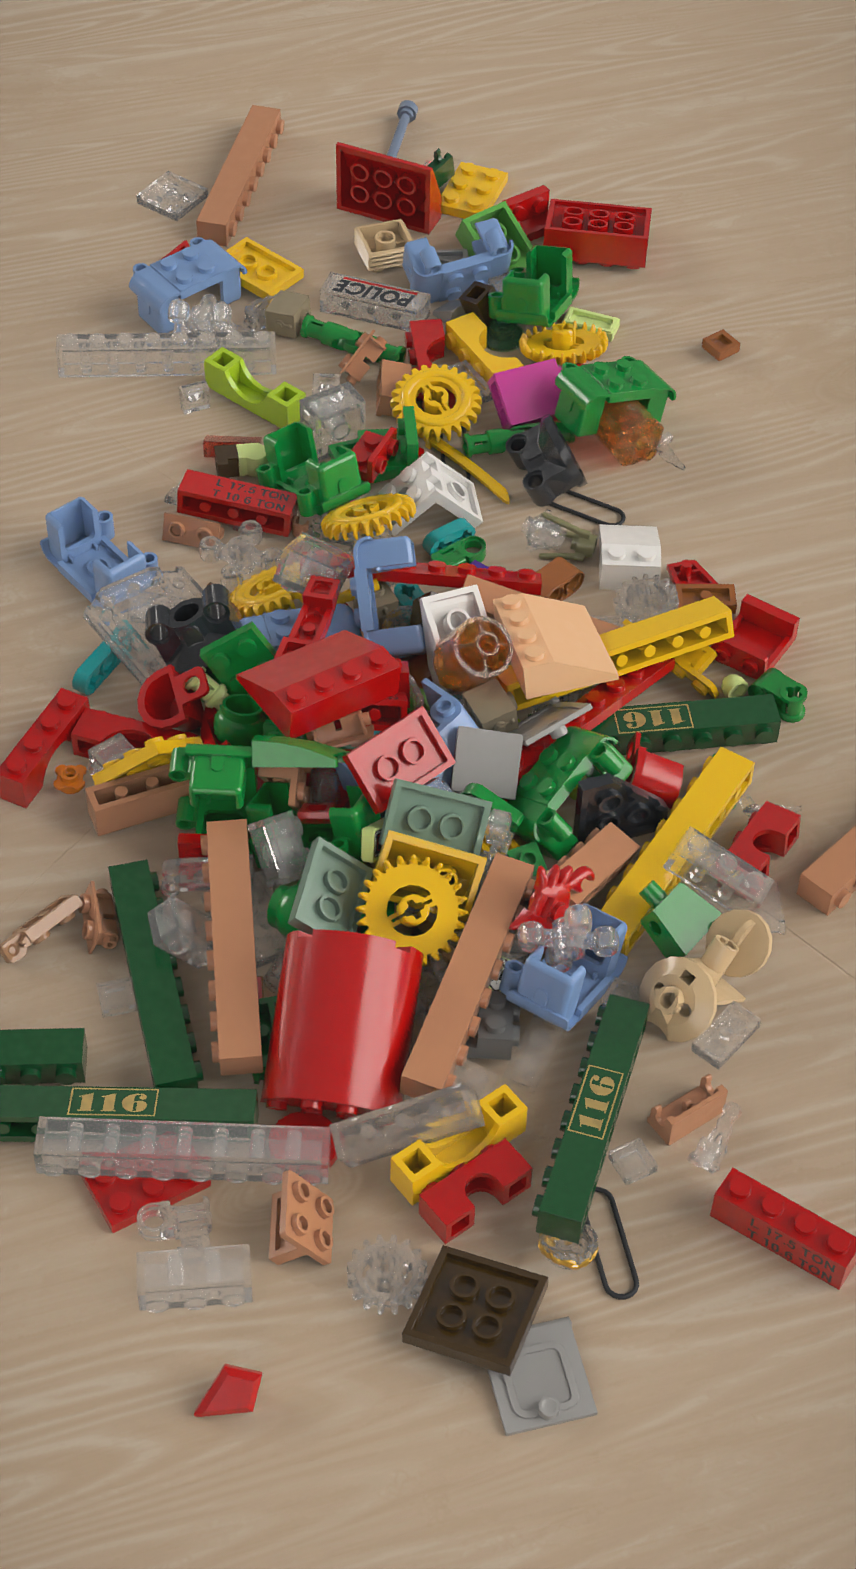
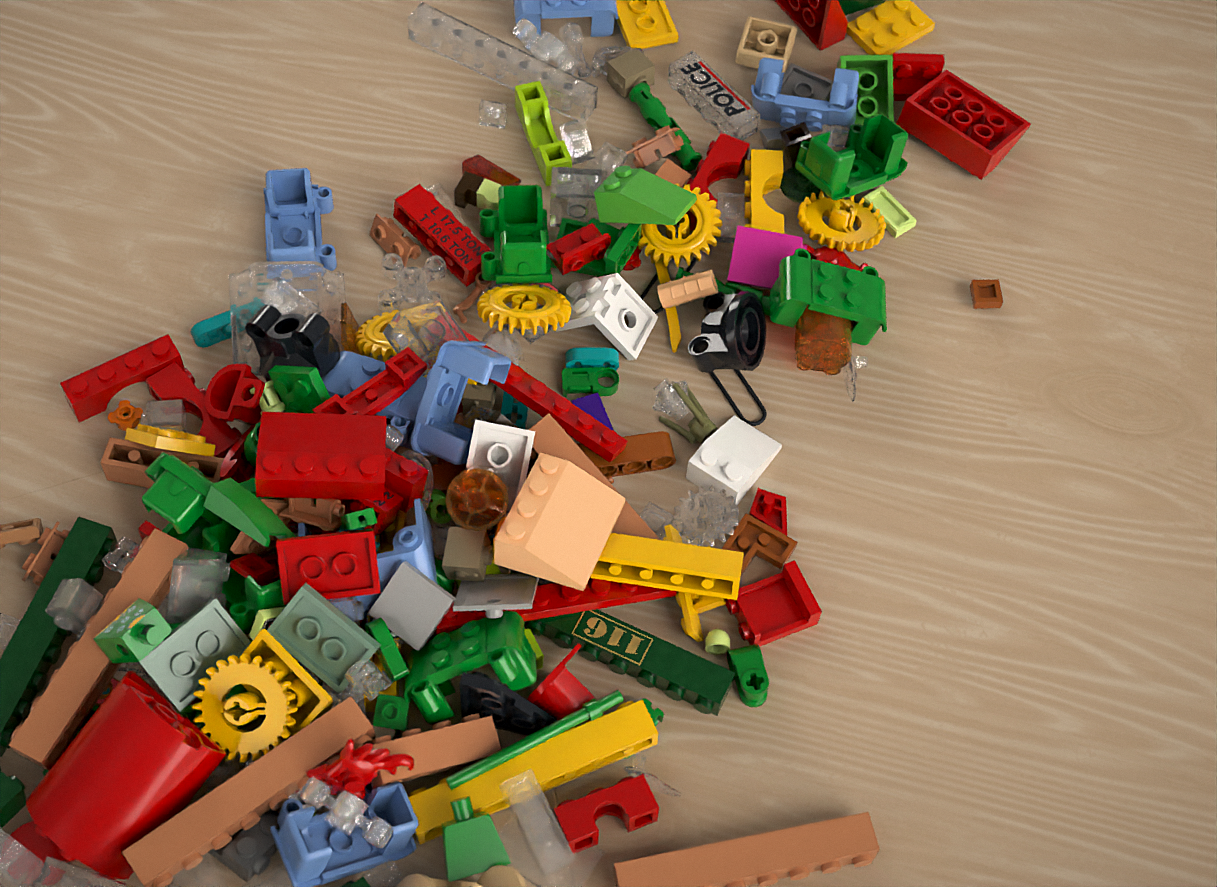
camera: 30 degrees right, 10 degrees up
(268, 901) = (137, 630): none -> green torso
(281, 373) = (577, 140): none -> clear plate
(396, 387) = (641, 198): none -> bright green slope
(396, 710) = (359, 519): none -> green piece
(487, 444) = (687, 289): none -> light nougat axle
(687, 775) = (591, 710): none -> green bar

